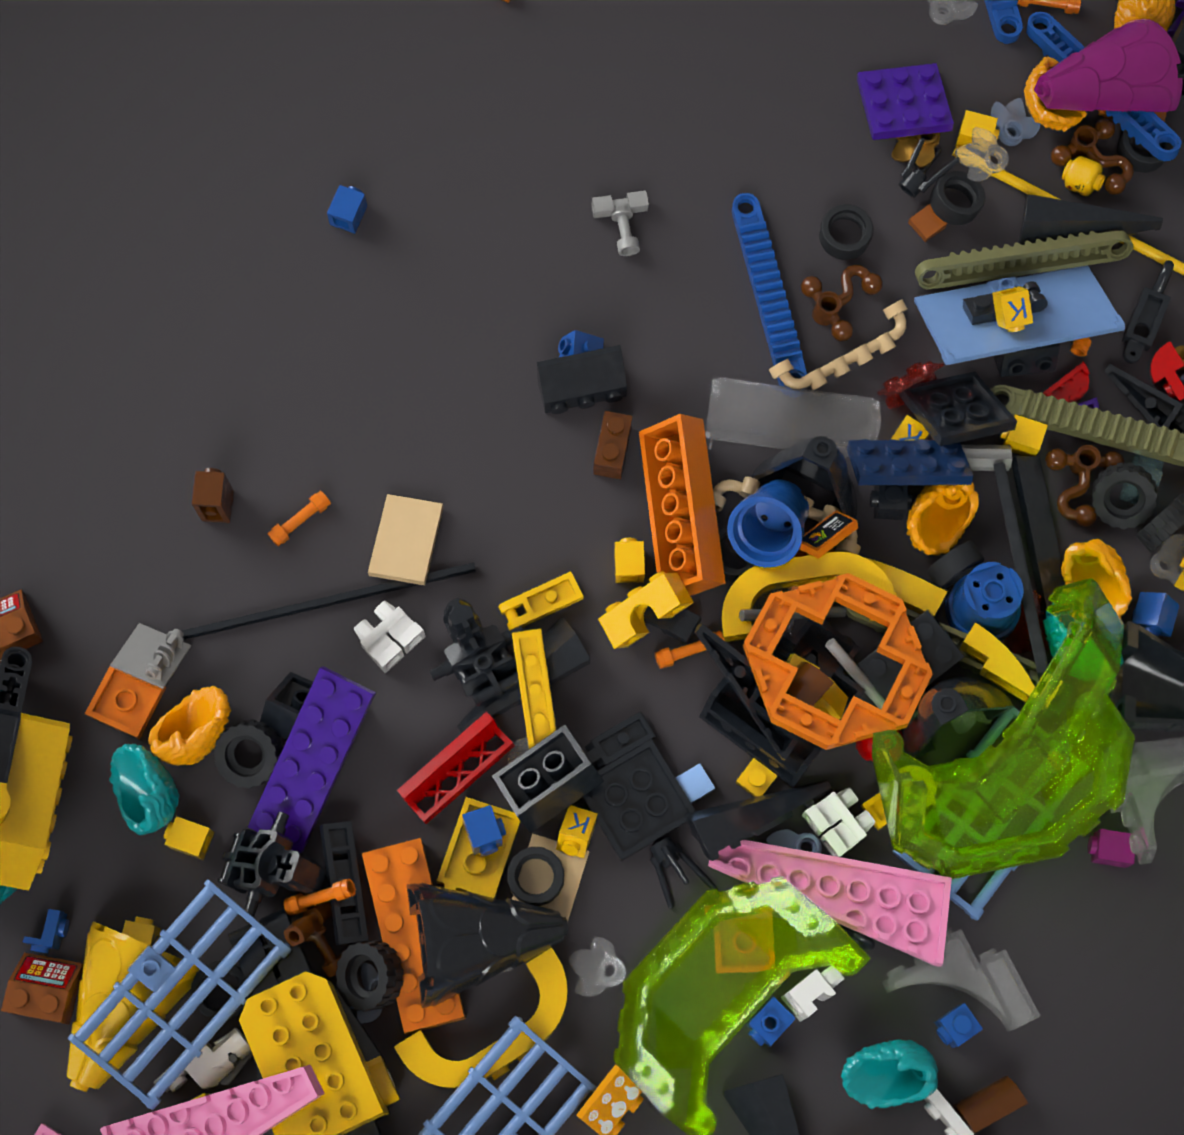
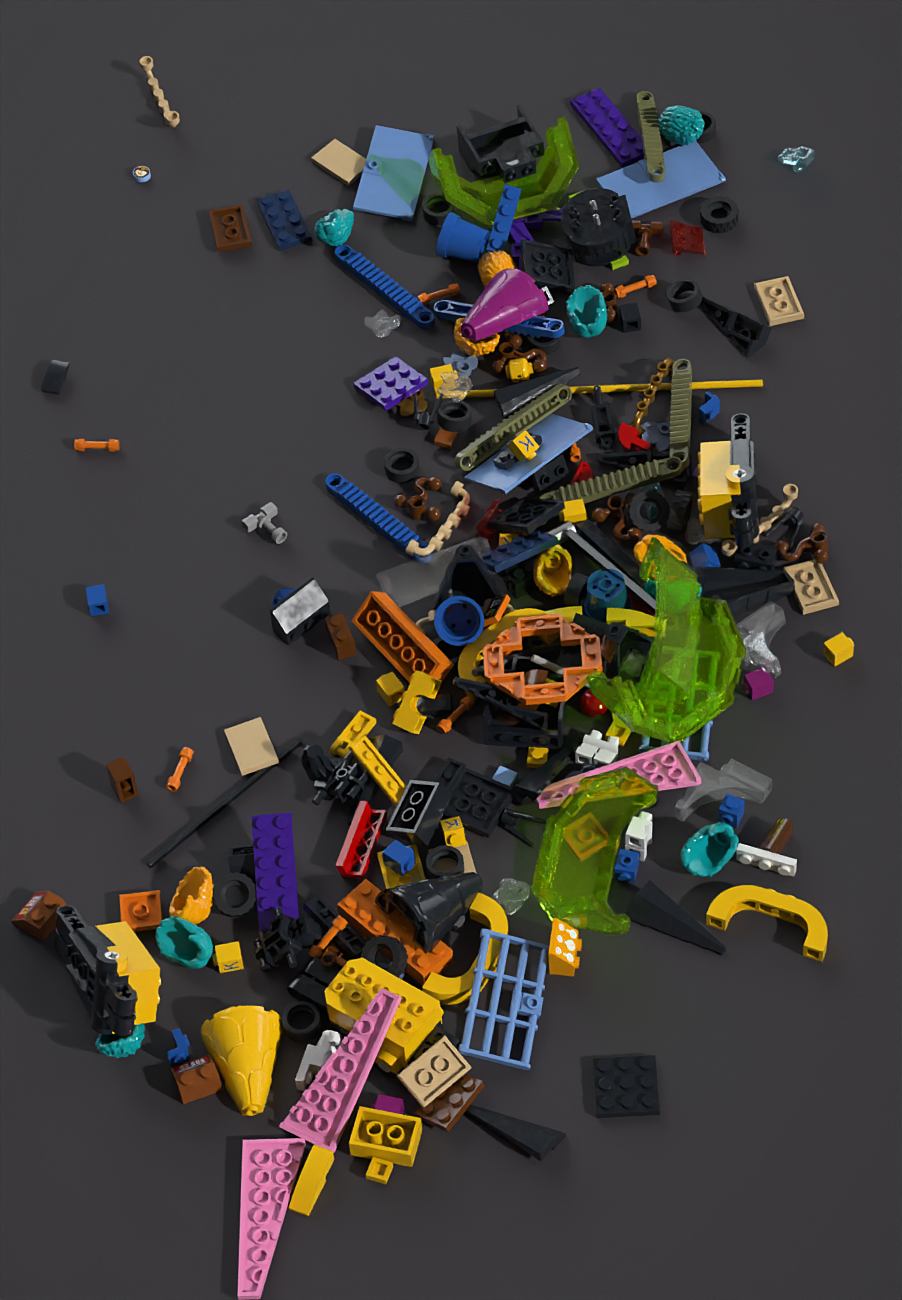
camera: 25 degrees left, 20 degrees down
(151, 655) = (141, 880): light grey hinge -> none
(162, 977) = (265, 1015): medium blue door -> none
(394, 625) = (277, 797): white hips -> none

